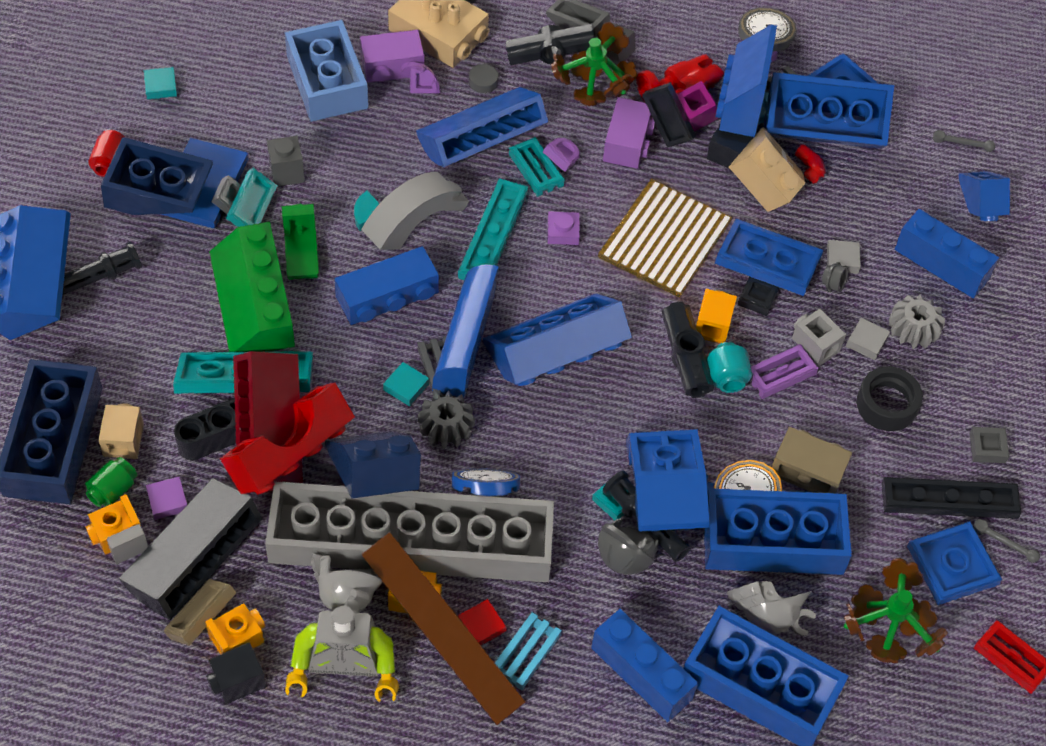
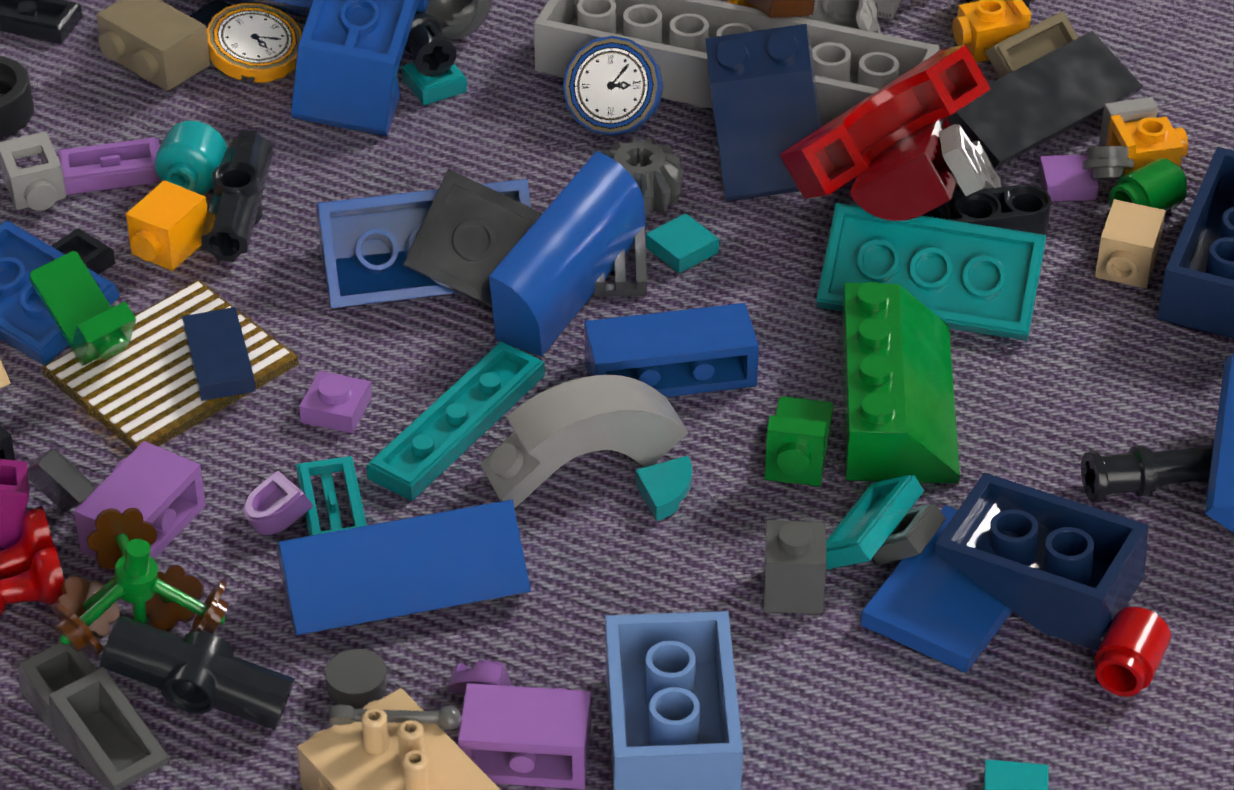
camera: 160 degrees left, 15 degrees down
(139, 486) = (1108, 162): none -> dark grey plate
(231, 431) = (967, 161): none -> light grey tile
(471, 19) = (447, 717): none -> dark grey hinge
(523, 315) = (467, 236): none -> black plate
(639, 235) = (218, 354): none -> dark blue tile
(707, 225) = (82, 310): none -> green bracket

